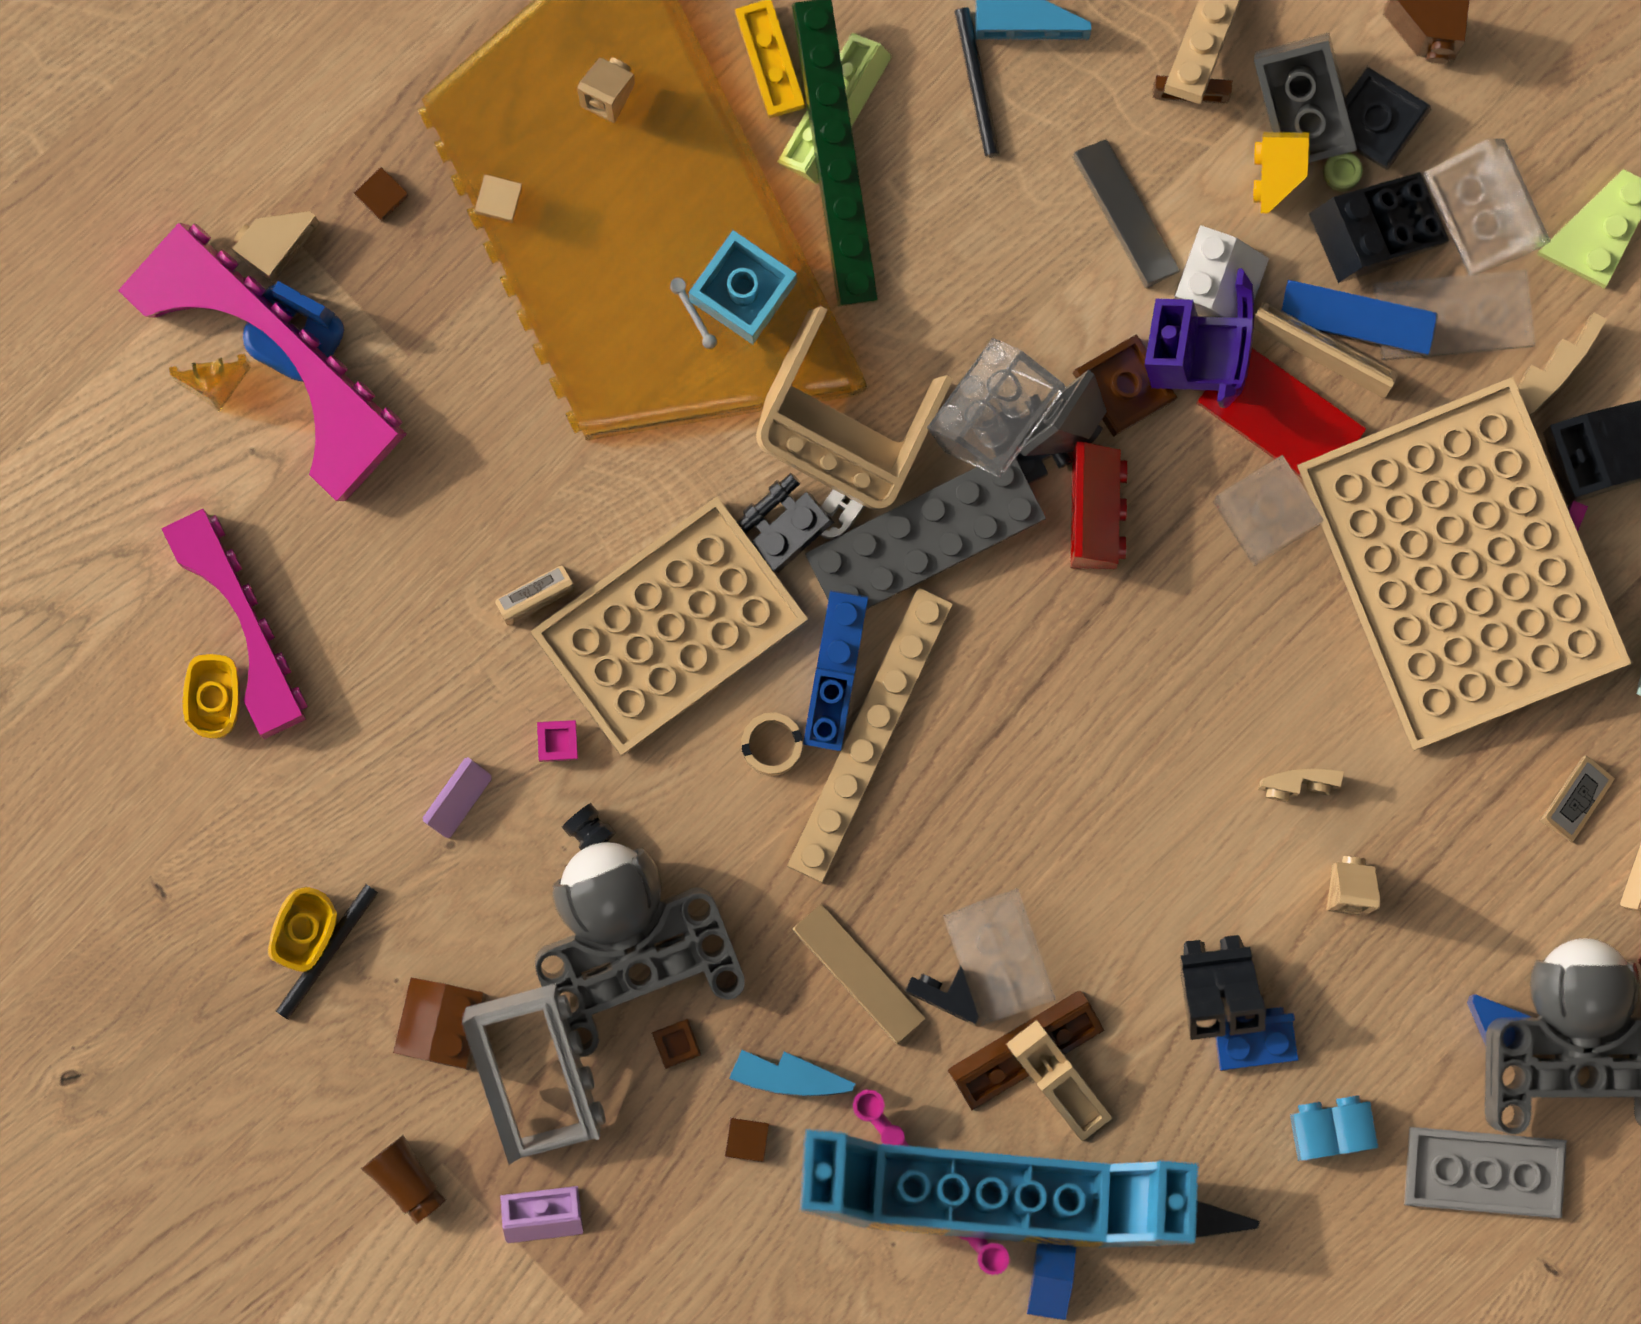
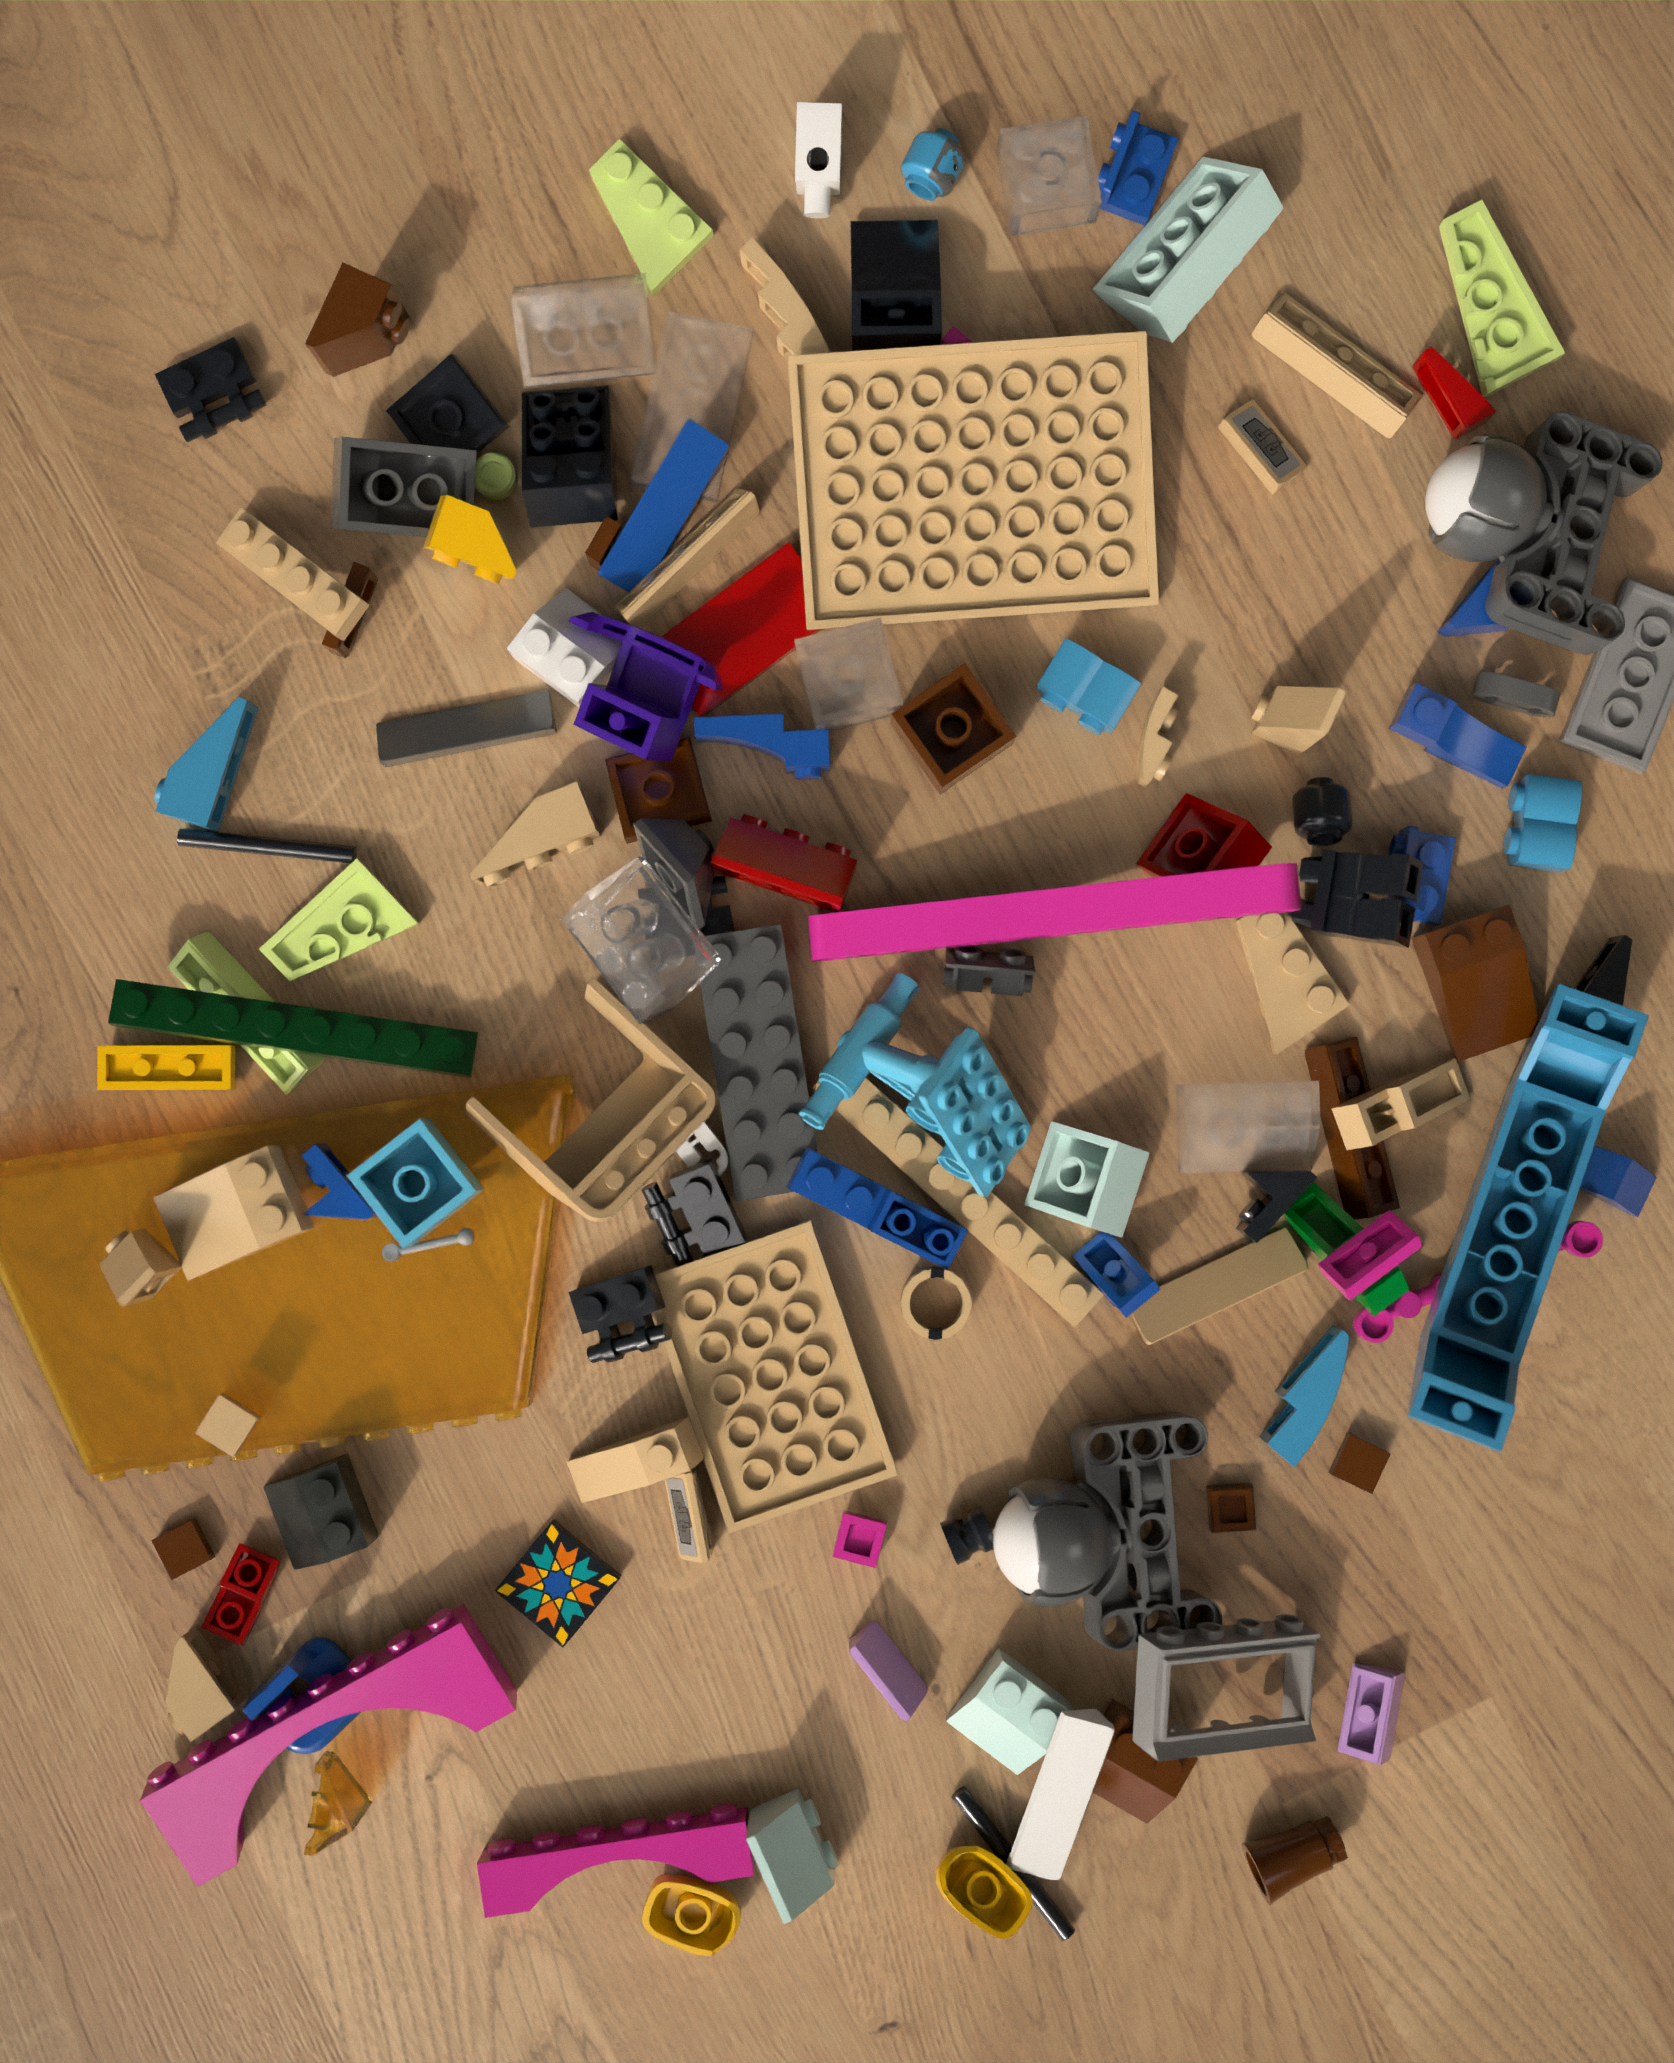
camera: 70 degrees left, 5 degrees up
(287, 761) = (791, 1853): none -> light aqua slope
(358, 253) = (241, 1594): none -> red slope
(401, 965) = (1061, 1793): none -> white slope
(445, 295) = (321, 1513): none -> pearl dark grey slope
(445, 506) = (558, 1583): none -> tile
(451, 909) = (1009, 1712): none -> light aqua slope
(567, 536) = (636, 1461): none -> tan slope
(672, 149) = (233, 1211): none -> tan slope
(691, 479) = (615, 1301): none -> black plate
(711, 233) = (344, 1198): none -> blue slope
(844, 883) = (1116, 1273): none -> blue slope
(914, 837) = (1087, 1179): none -> light aqua slope
(922, 1066) = (1328, 1227): none -> green slope
(925, 1077) = (1370, 1255): none -> dark pink plate
(931, 159) = (337, 923): none -> yellowish green wing
(949, 694) = (950, 1095): none -> medium azure plate
(1062, 302) = (545, 828): none -> tan slope
(1062, 689) = (1007, 969): none -> dark grey hinge
(1125, 735) = (1056, 912): none -> dark pink beam
(1137, 955) = (1289, 978): none -> tan wing
(1182, 1114) = (1479, 982): none -> reddish brown slope
(1194, 492) = (801, 751): none -> blue slope
(1215, 853) = (1202, 840): none -> red slope
(1252, 609) = (952, 728): none -> reddish brown brick
(1283, 940) = (1322, 812): none -> black head
(1315, 276) = (603, 542): none -> reddish brown tile
(1324, 712) = (1087, 687): none -> dark azure brick
(1383, 1035) = (1456, 736): none -> blue slope
(1435, 1074) = (1516, 694): none -> dark grey beam

